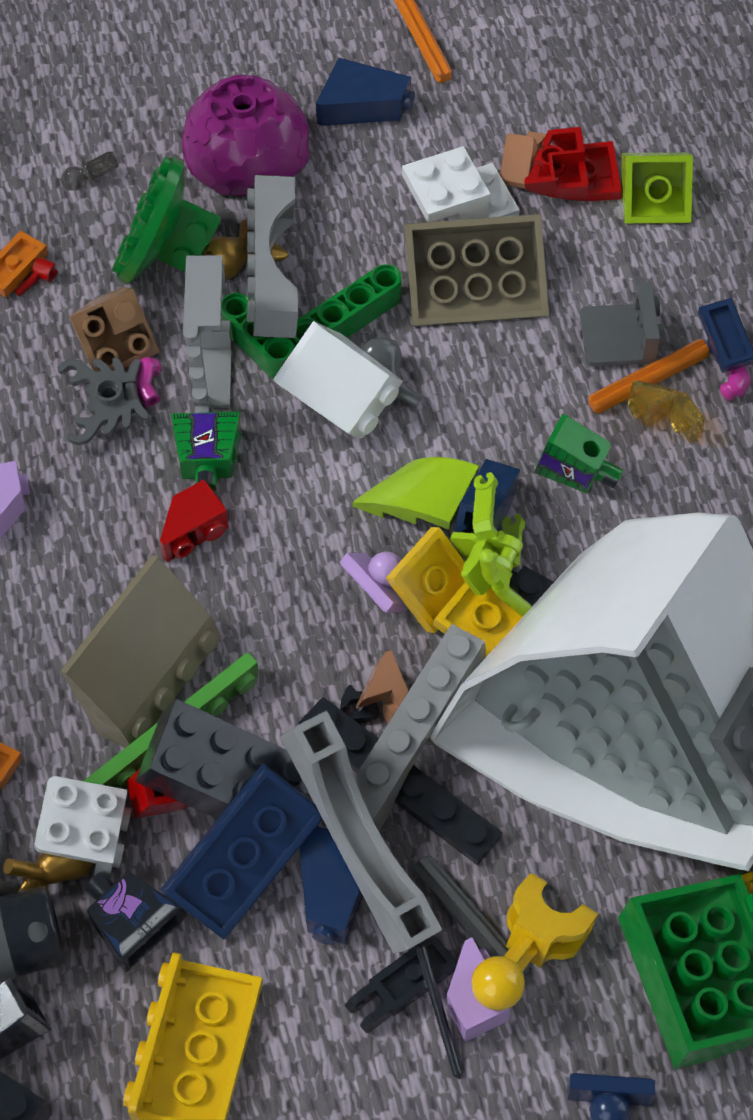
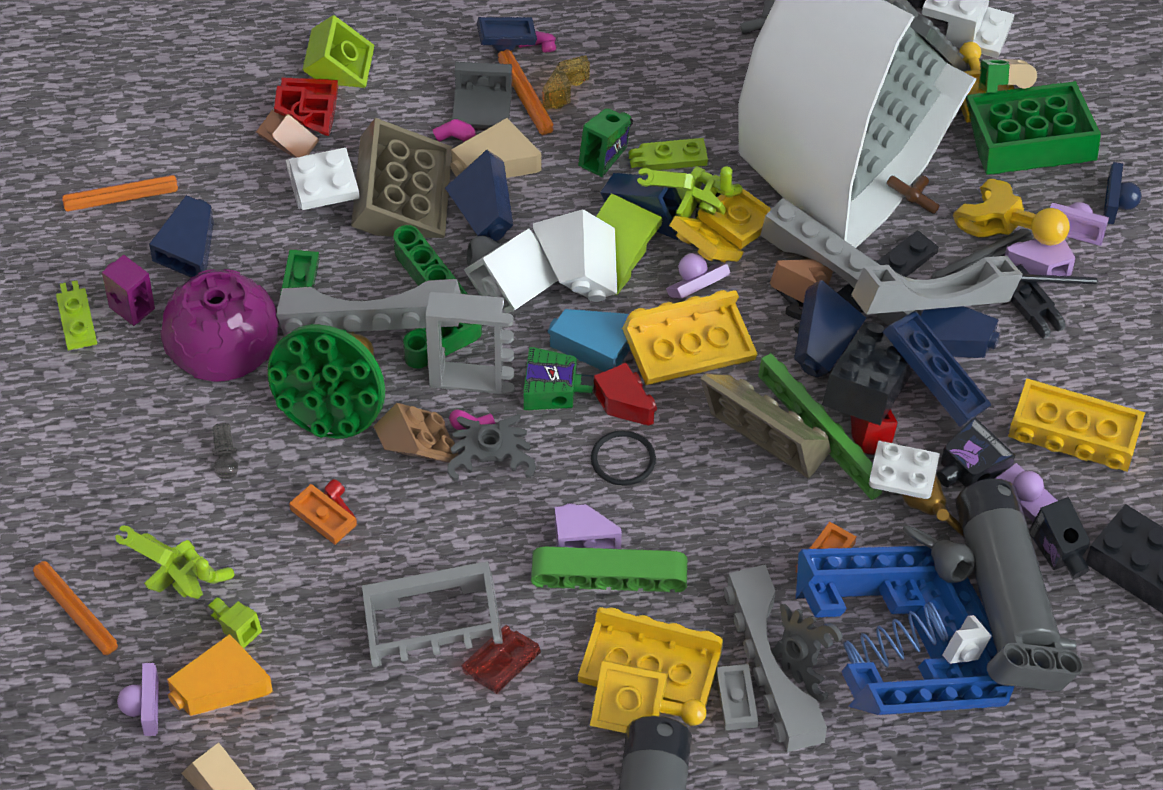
camera: 85 degrees left, 5 degrees down
(85, 989) = (1029, 489): none -> lavender tile
(120, 564) = (604, 476): none -> black tyre
(255, 27) = (76, 317): none -> lime hinge
(272, 485) = (591, 337): none -> dark azure slope
(273, 48) = (128, 290): none -> magenta brick
(274, 575) = (688, 337): none -> yellow bracket
(275, 714) = (824, 329): none -> dark blue slope
(327, 199) = (301, 269): none -> green plate
(372, 443) = (581, 253): none -> white slope
(457, 345) = (484, 196): none -> dark blue slope
(537, 353) = (505, 142): none -> tan slope
(550, 1041) = (1083, 223): none -> lavender tile
(564, 825) = (914, 193): none -> reddish brown piece
(569, 313) = (455, 128): none -> dark pink arm
(574, 526) = (670, 154): none -> lime hinge

